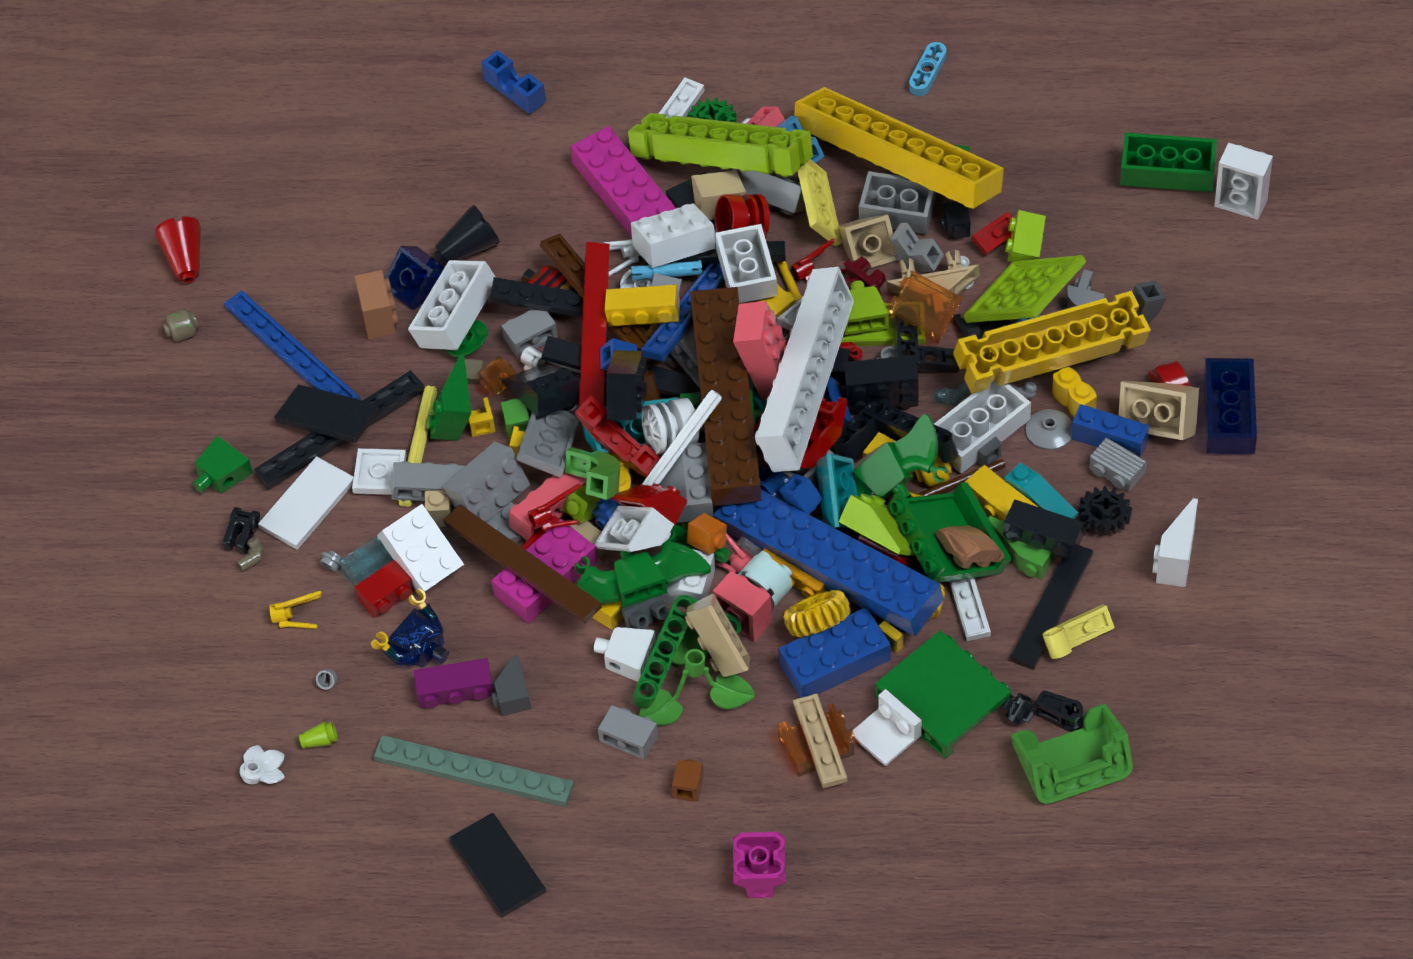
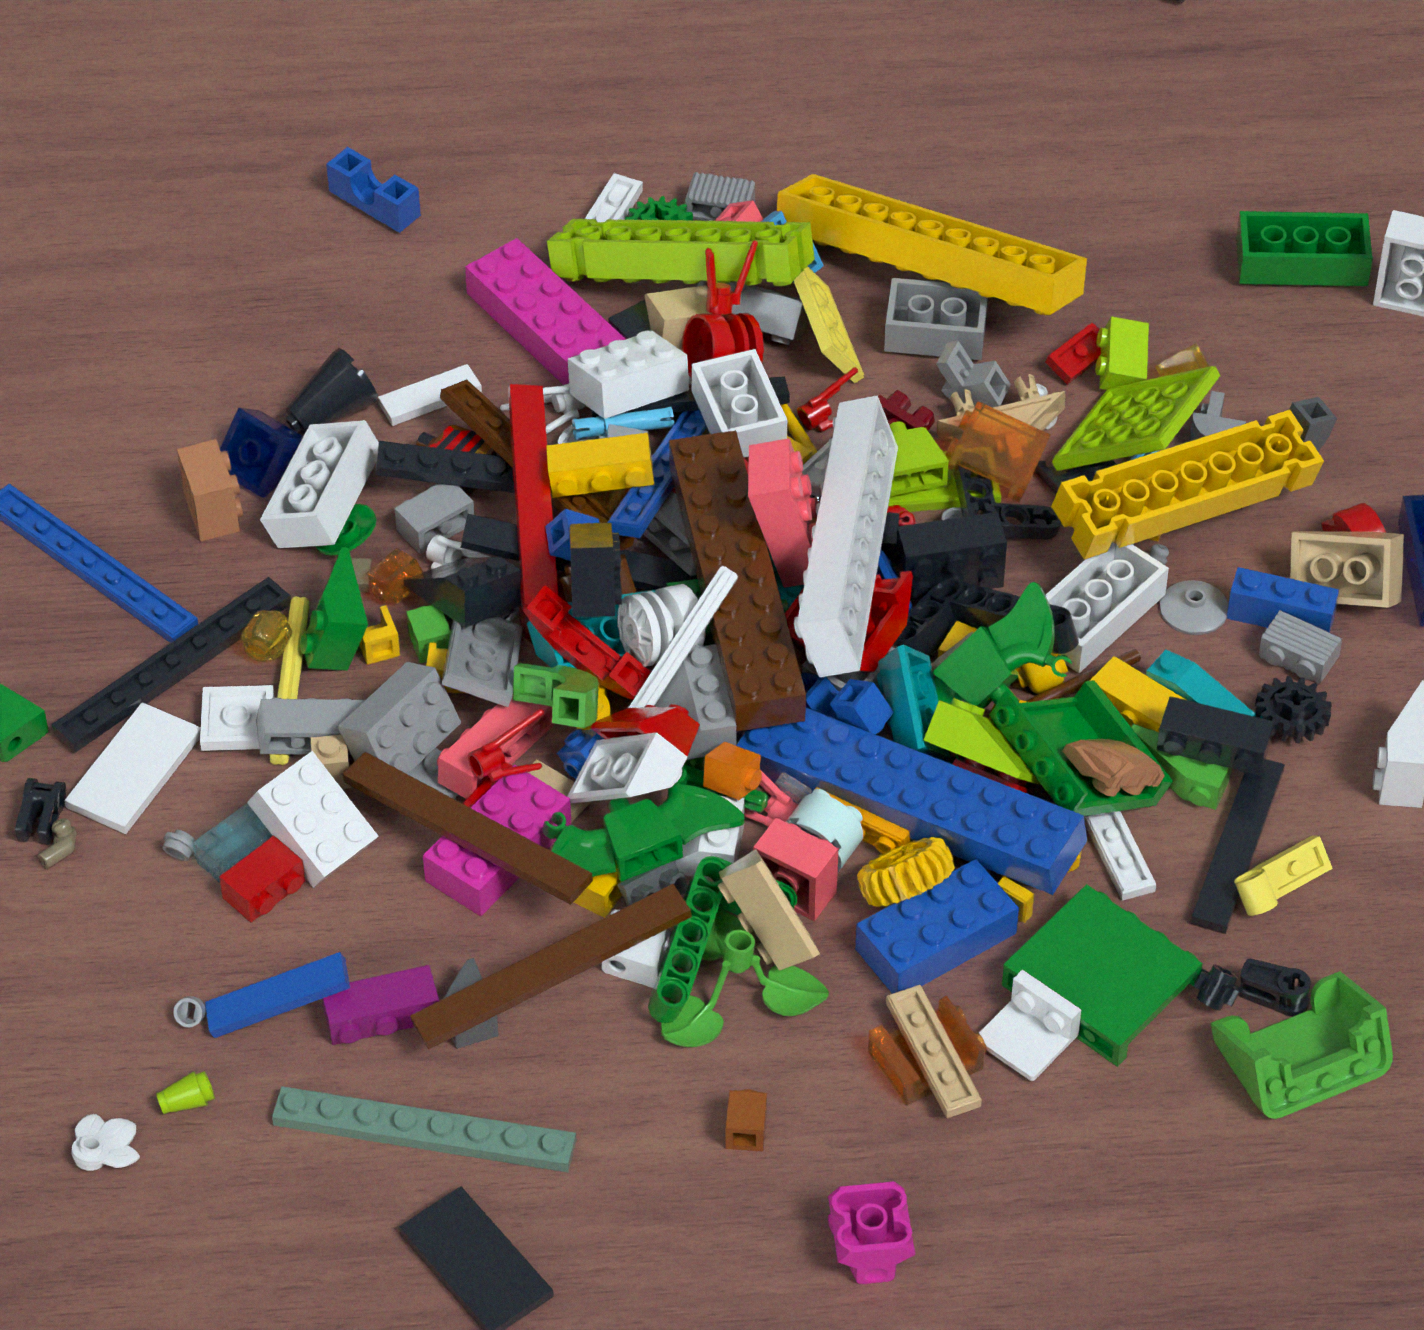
camera: 10 degrees left, 5 degrees down
(282, 611) = (113, 919): yellow plant -> none
(327, 413) = (152, 641): black tile -> none
(385, 672) = (277, 995): none -> blue tile
(404, 413) = (266, 635): none -> clear yellow head
(416, 638) = (317, 934): clear blue torso -> none
(529, 241) = (423, 396): none -> white tile
(567, 665) = (550, 966): none -> reddish brown tile
(581, 505) = (541, 743): lime brick -> none
(628, 732) = (648, 1057): light grey brick -> none
(741, 181) = (719, 295): none -> red plant
(751, 97) = (712, 194): none -> light grey brick
(869, 239) = (904, 366): tan slope -> none
(928, 77) = (951, 158): medium azure beam -> none
(952, 396) = (1048, 569): clear light blue arm -> none
(955, 220) = (1021, 338): black brick -> none
(989, 452) = (1116, 640): dark grey tile -> none
(1069, 246) = (1186, 360): none -> clear yellow panel
(1071, 391) = (1220, 553): yellow brick -> none

